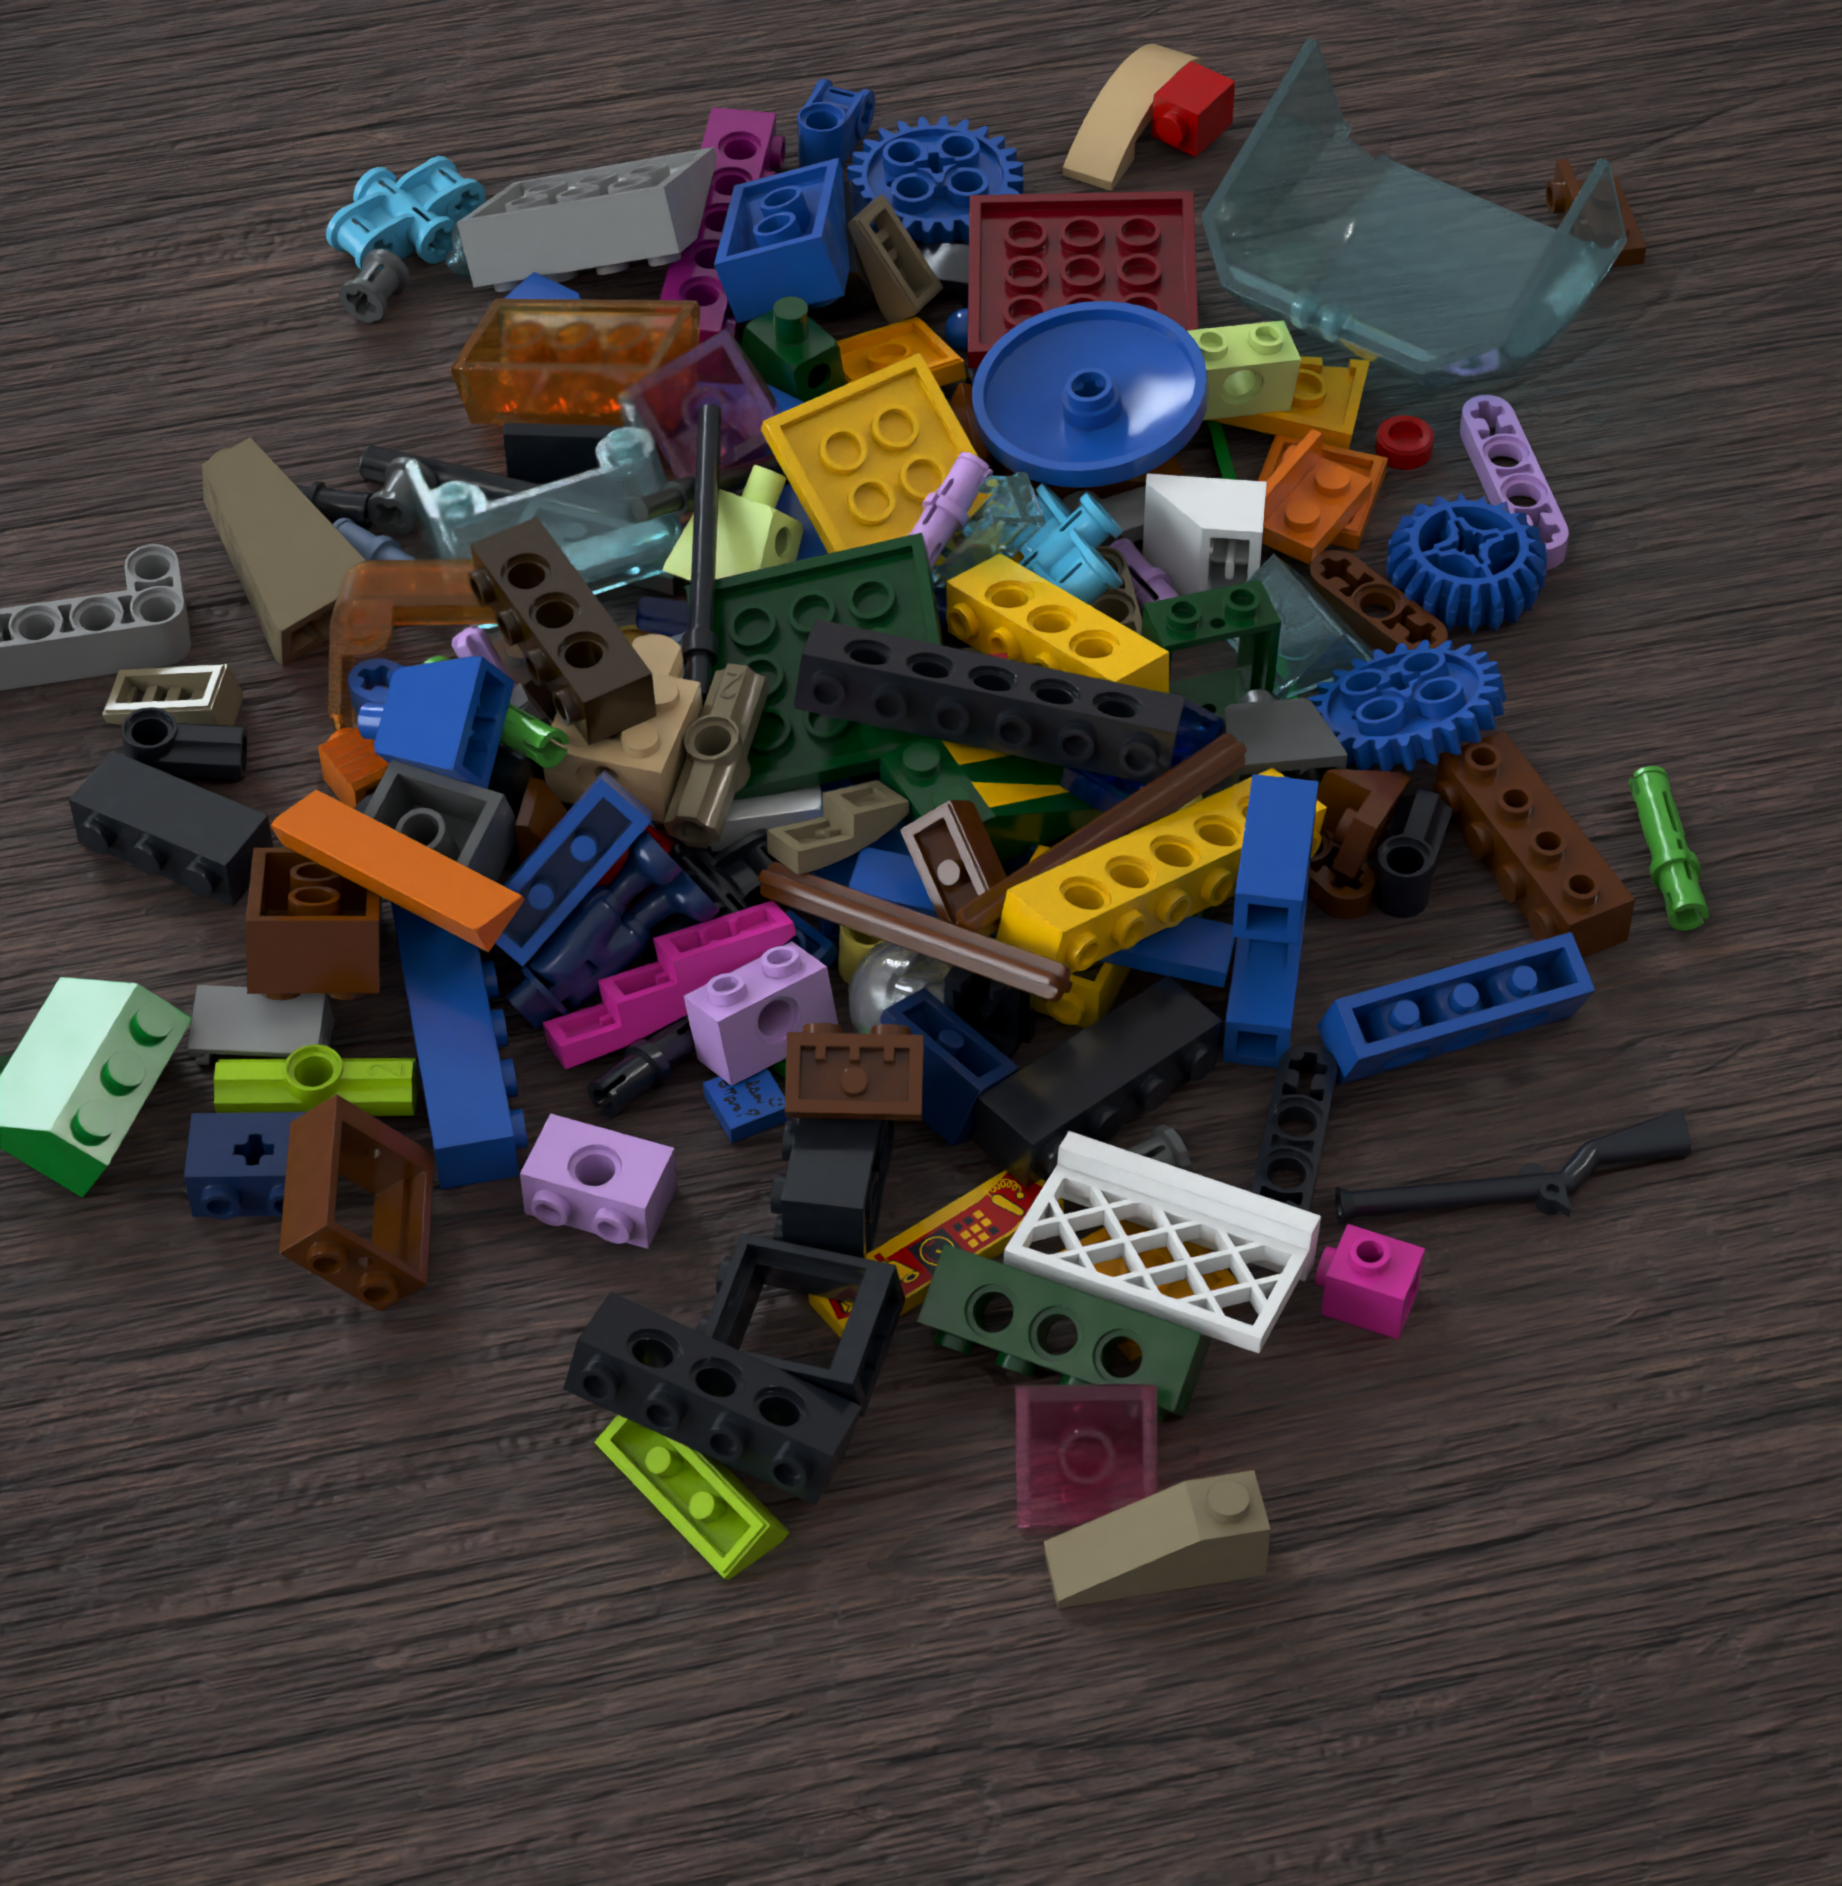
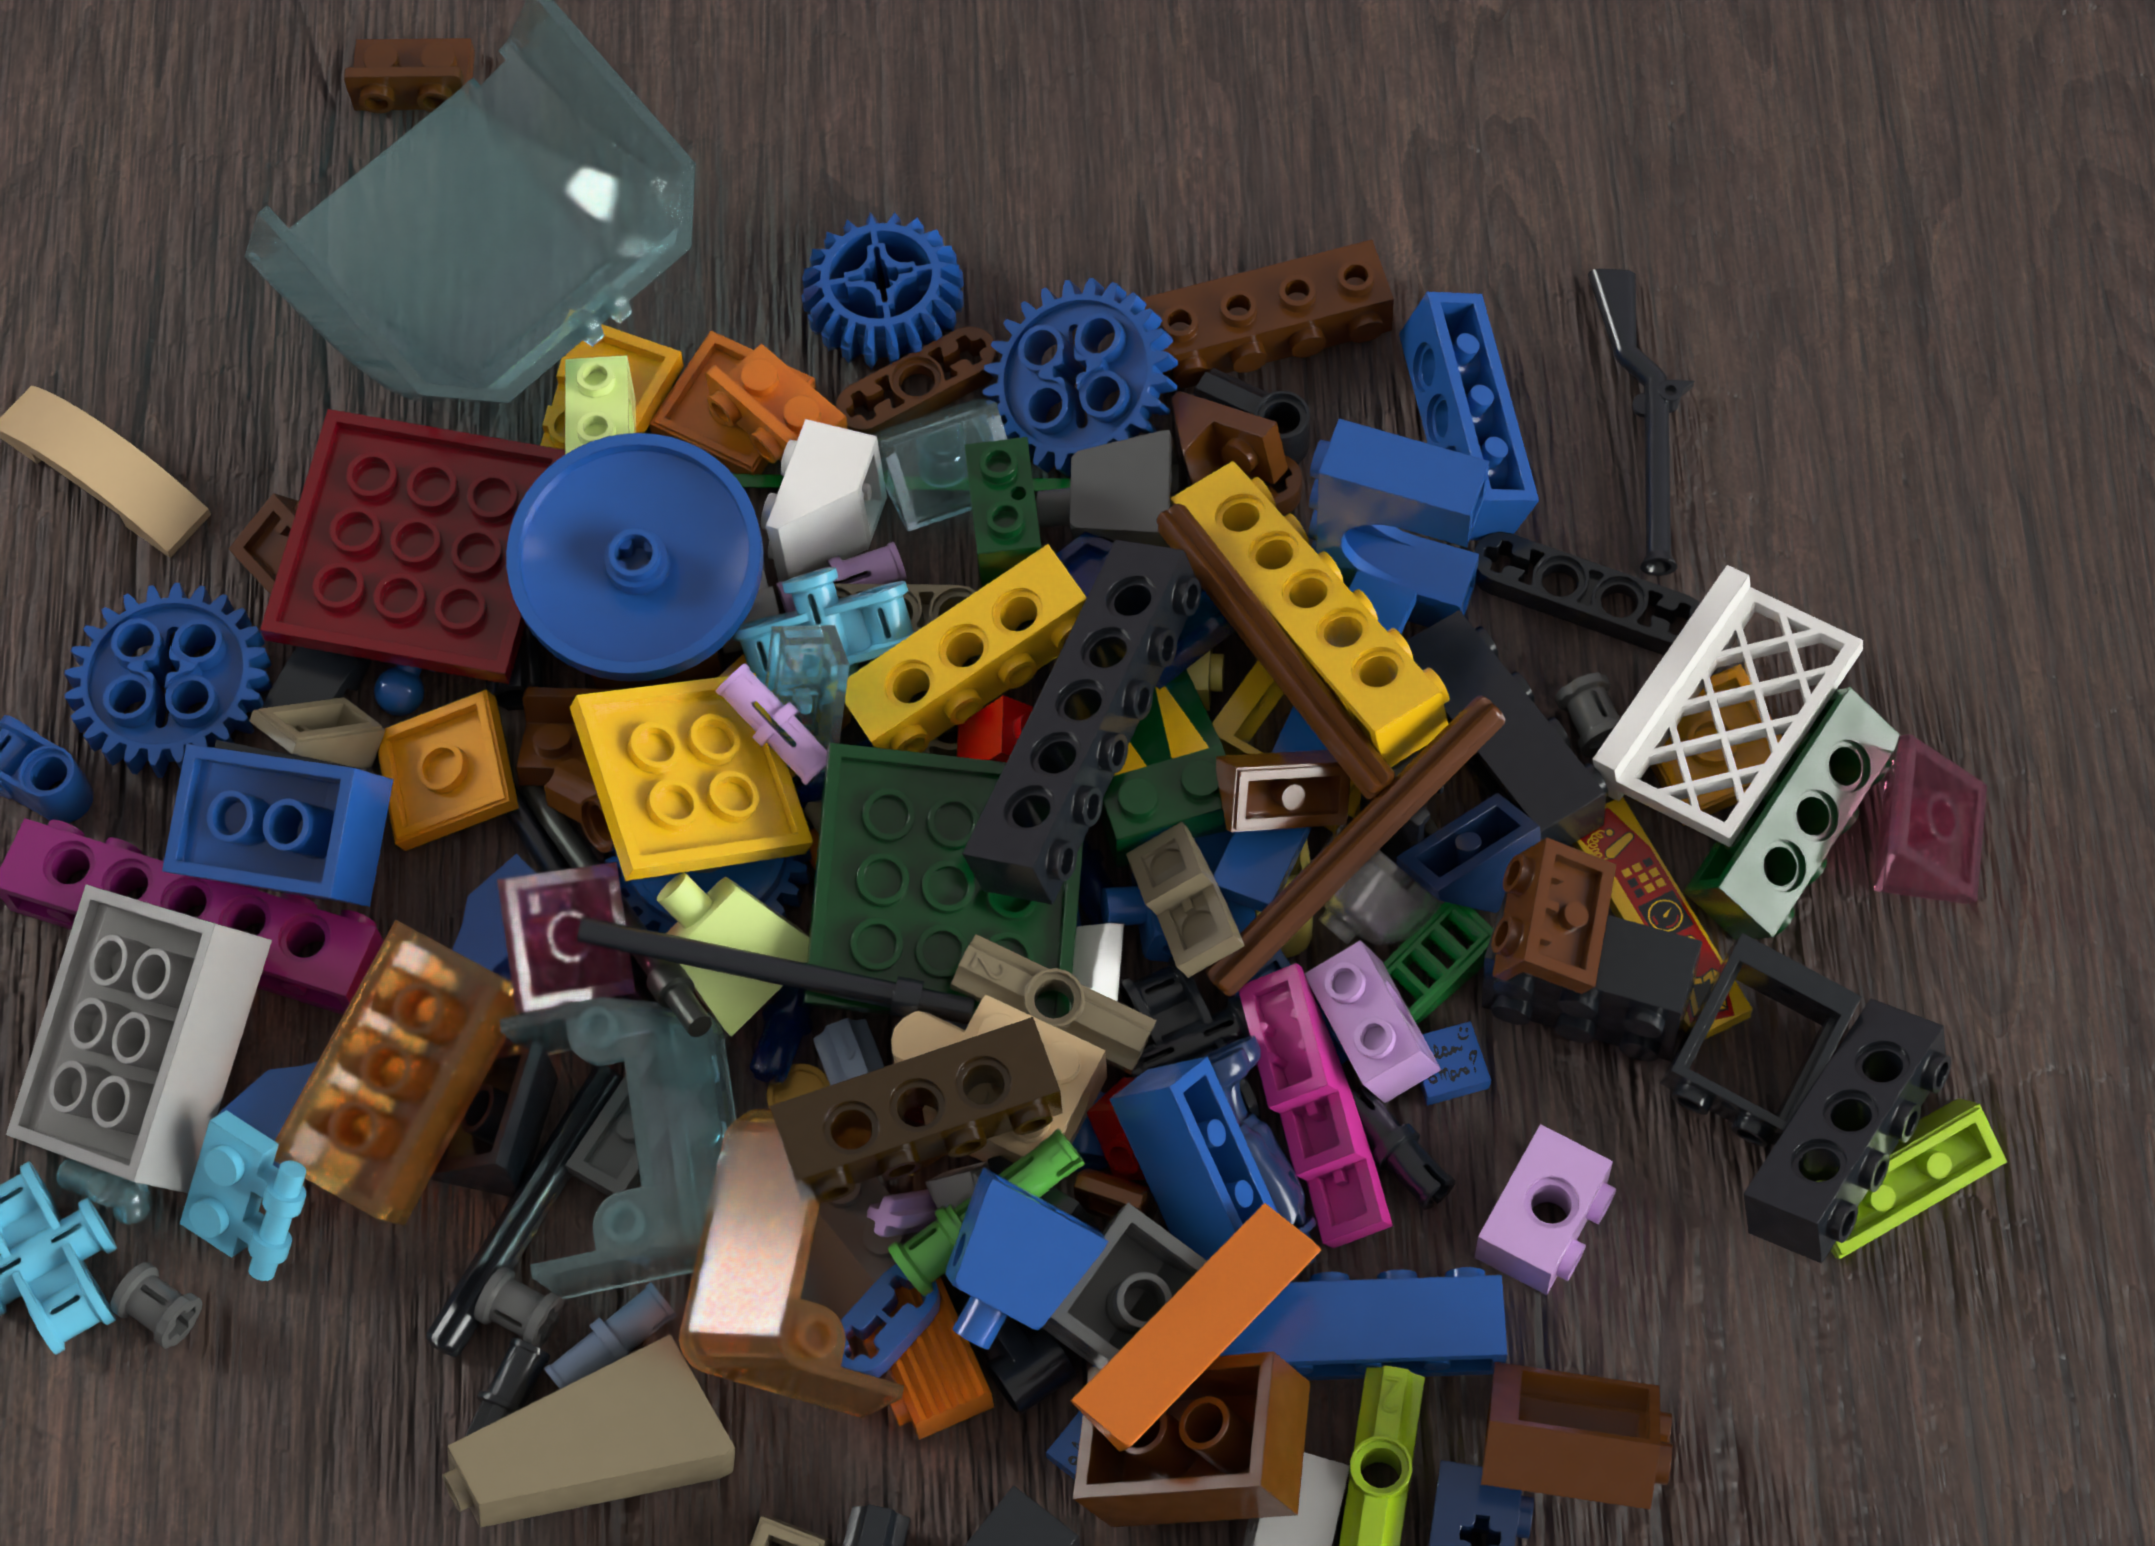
camera: 75 degrees left, 15 degrees up
(465, 301) = (228, 1190): none -> medium azure plate
(793, 351) = (440, 862): dark green torso -> none
(1163, 1543) = (2024, 779): dark tan slope -> none
(1193, 108) = (140, 400): red brick -> none
(1370, 1280) = (1762, 545): dark pink brick -> none
(1405, 442) = (683, 313): red tile -> none
(1520, 480) = (768, 218): lavender beam -> none
(1673, 865) = (1271, 207): bright green pin -> none

